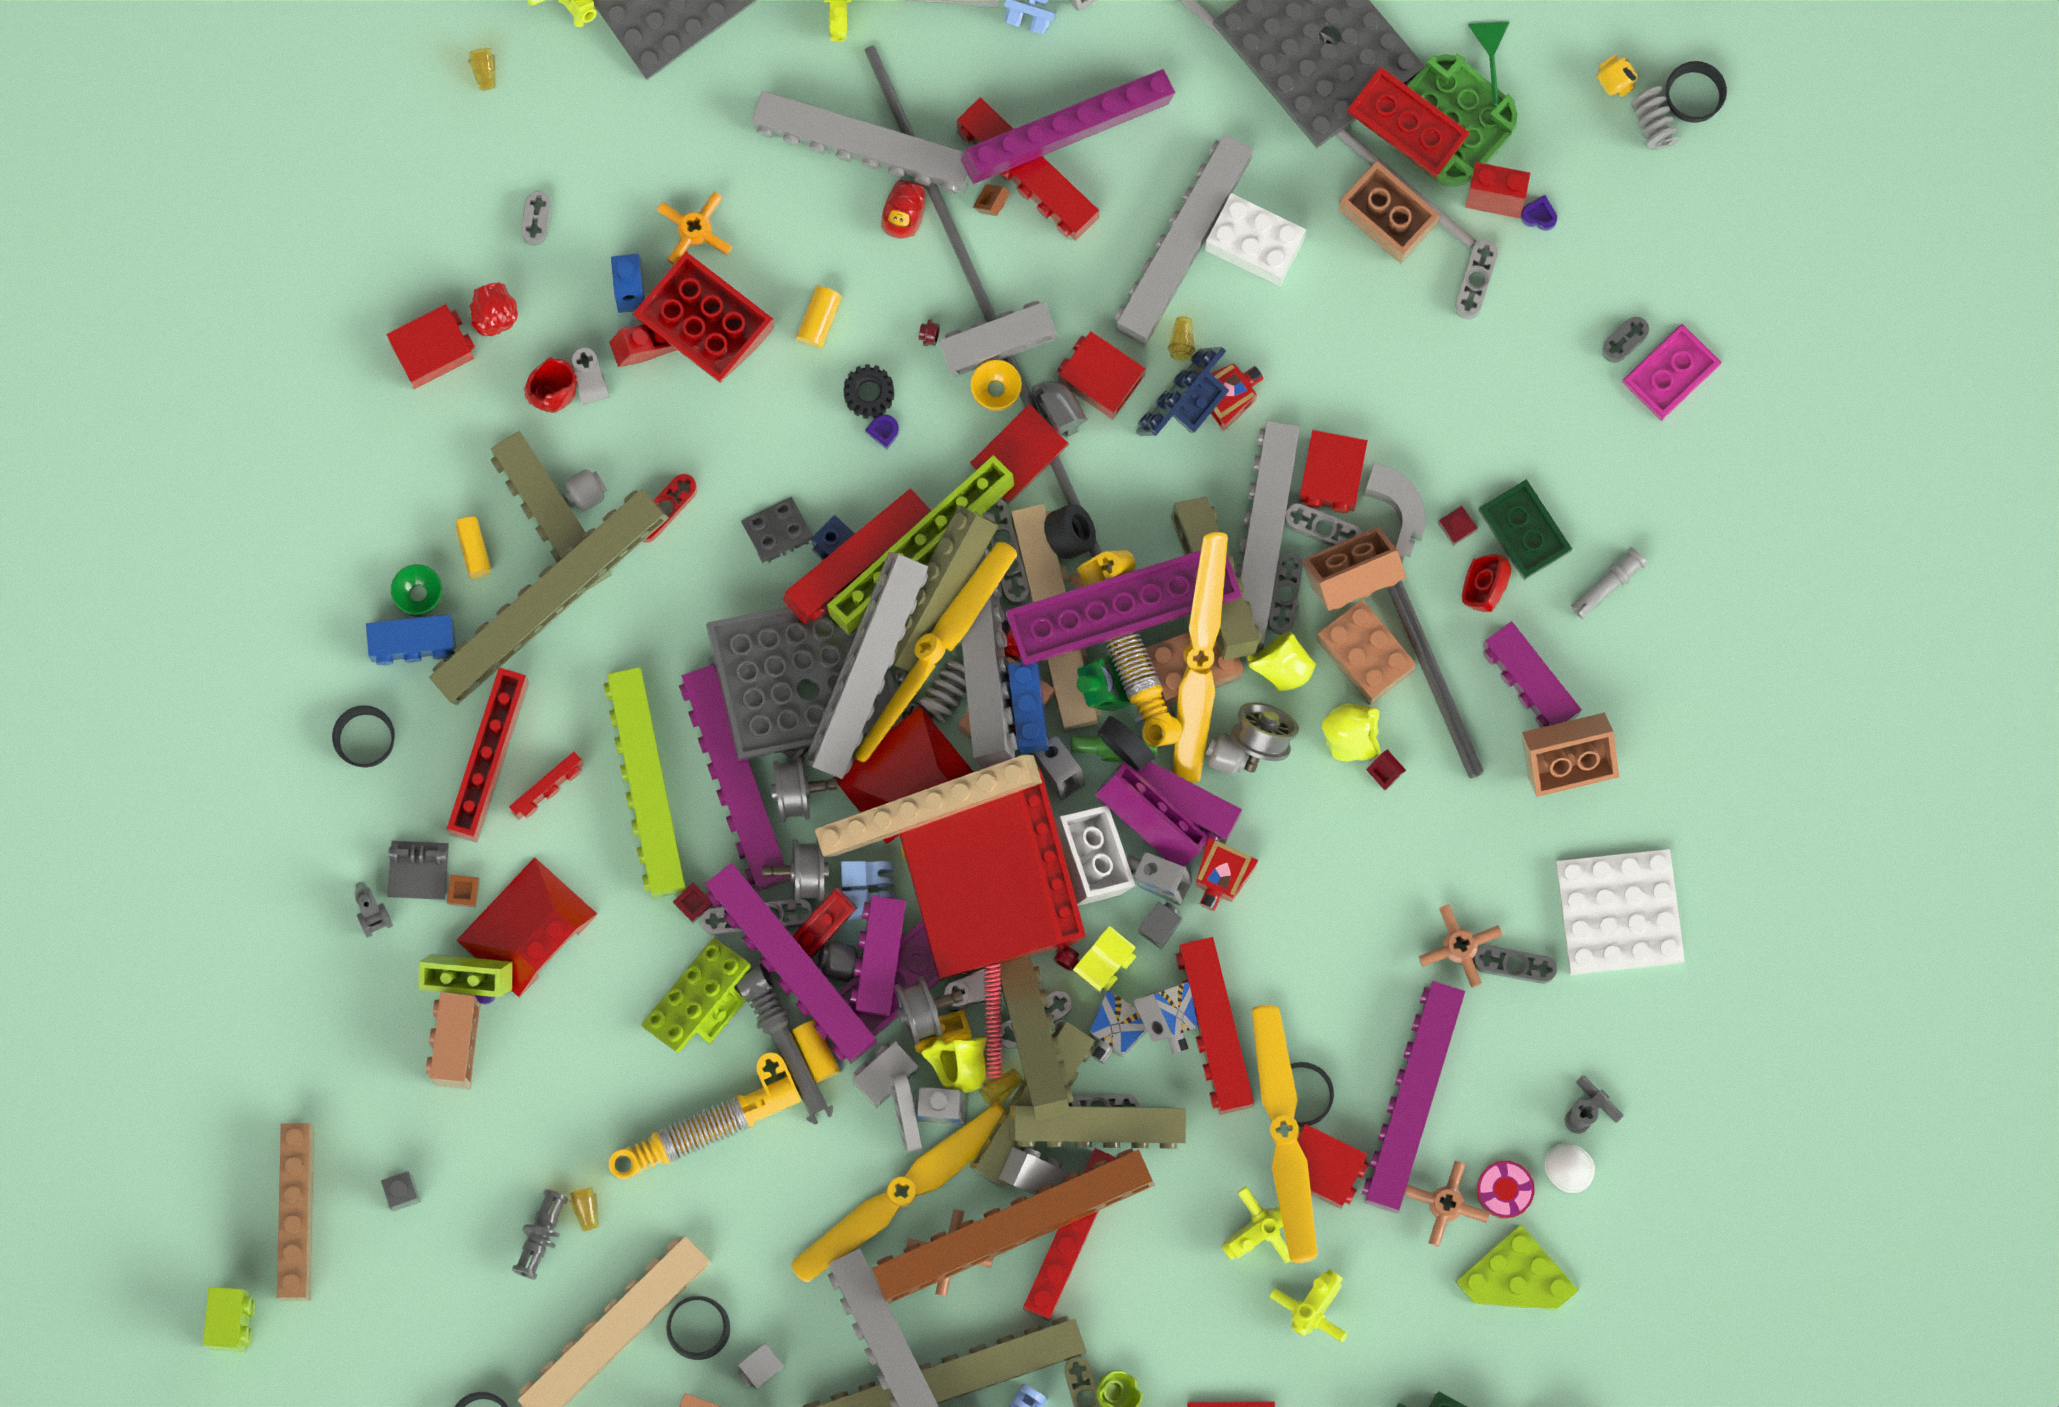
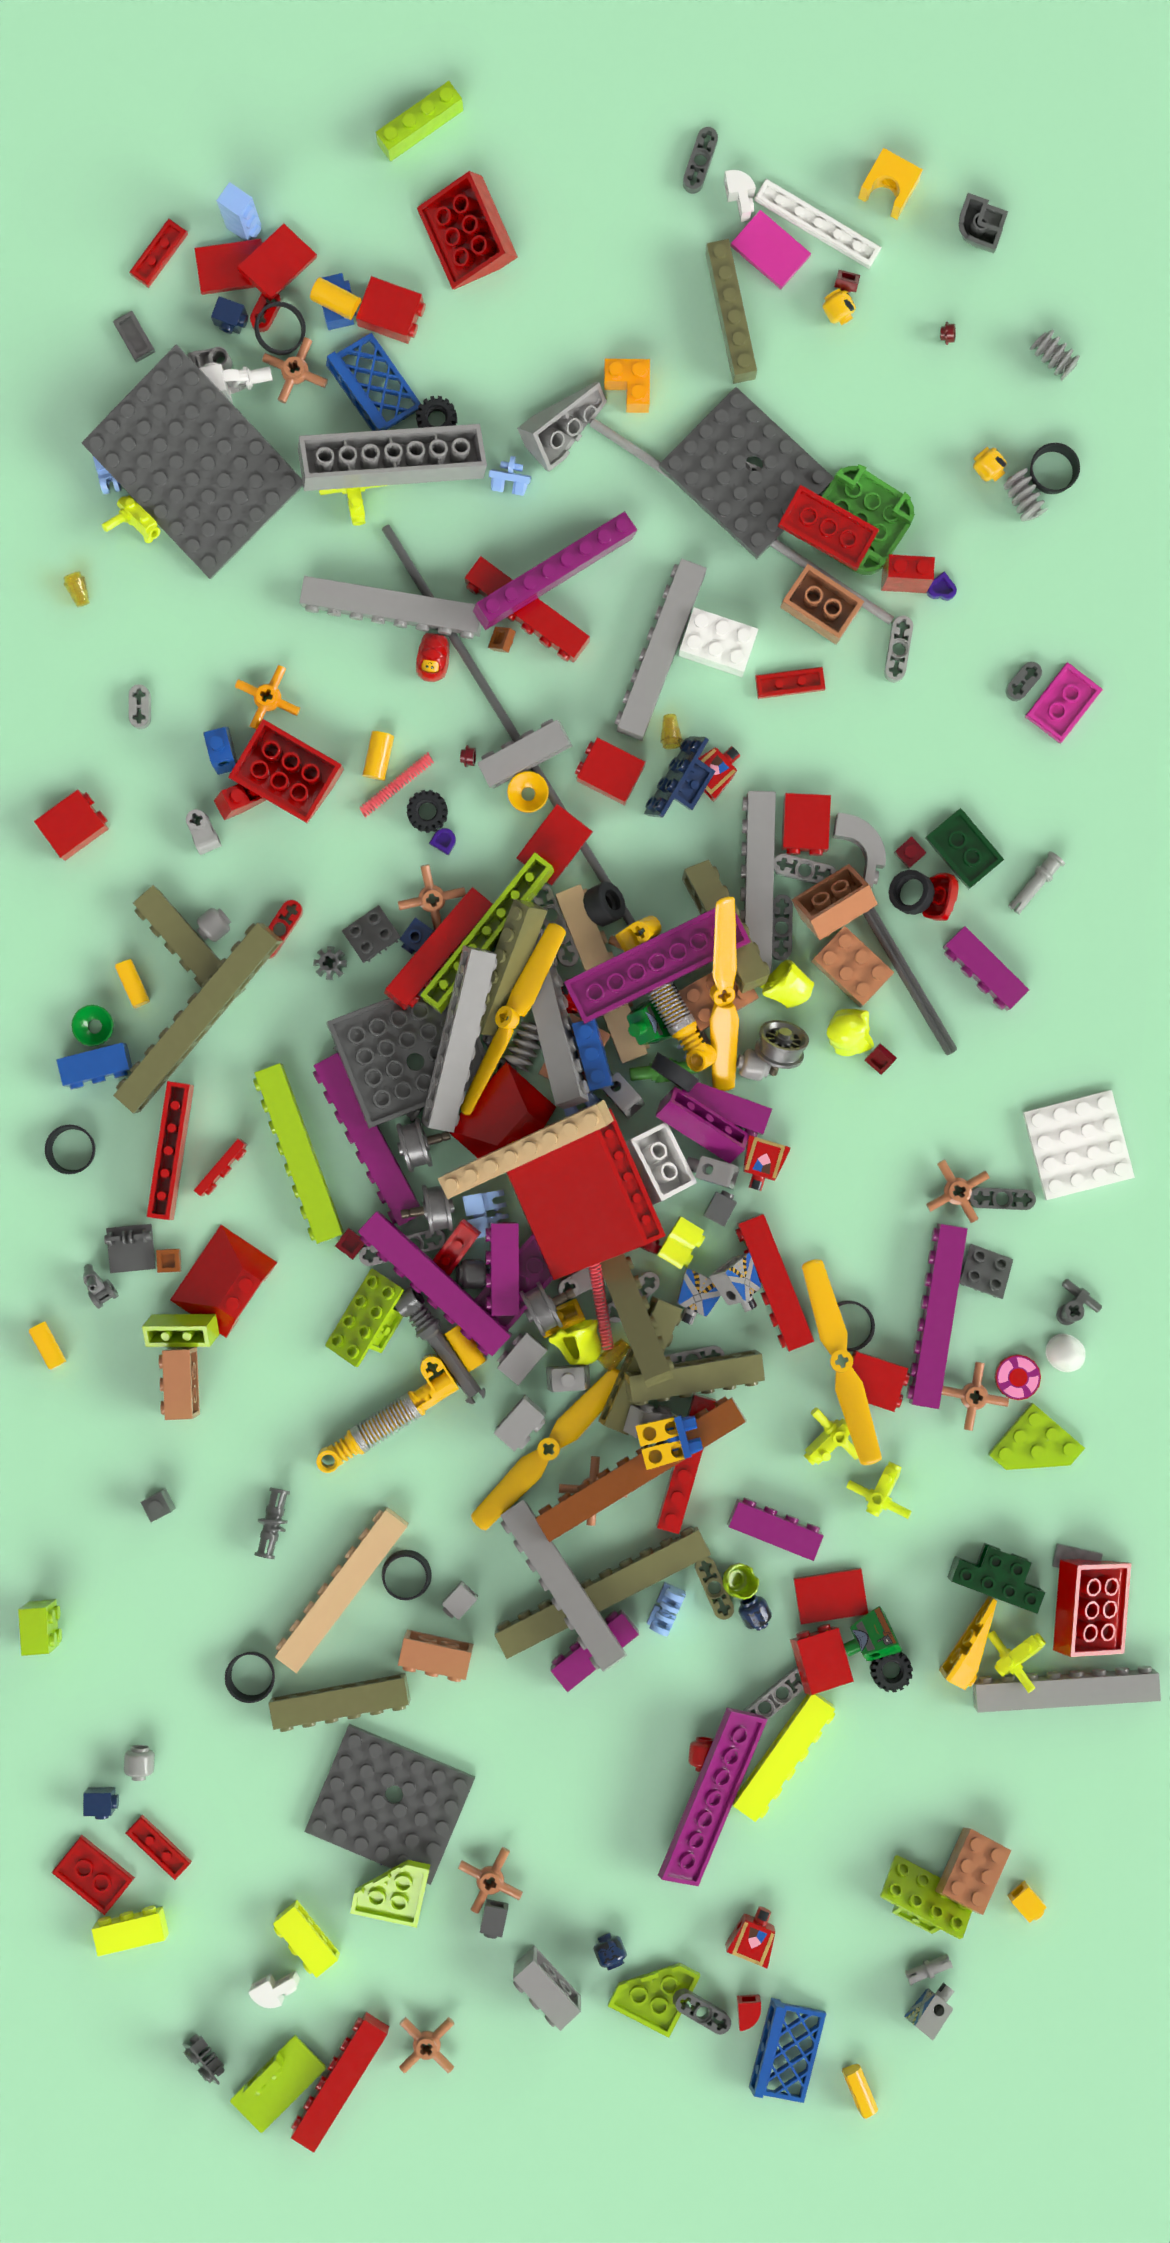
camera: 10 degrees left, 10 degrees up
(295, 974) = (47, 1345): none -> yellow brick
(295, 1212) = (78, 1533): medium nougat brick -> none
(493, 309) = (116, 788): red hair -> none
(551, 385) = (172, 844): red hair -> none
(585, 1208) = (304, 1496): clear yellow cone -> none
(730, 557) = (336, 965): none -> dark grey piece
(804, 369) = (392, 788): none -> coral piece
(866, 488) = (430, 888): none -> nougat bar
(871, 1152) = (519, 1423): none -> light grey brick
(905, 1112) = (542, 1387): light grey beam -> none
(1050, 1188) = (674, 1437): none -> yellow hips
(1059, 406) = (581, 802): dark grey brick -> none
(1172, 1334) = (775, 1529): none -> magenta brick
(1337, 301) = (790, 682): none -> red tile
(1438, 558) = (897, 884): none -> black tyre
(1482, 1051) = (986, 1271): none -> dark grey hinge
(1490, 37) = (882, 445): green piece -> none
(1570, 754) = (1026, 1027): nougat brick -> none

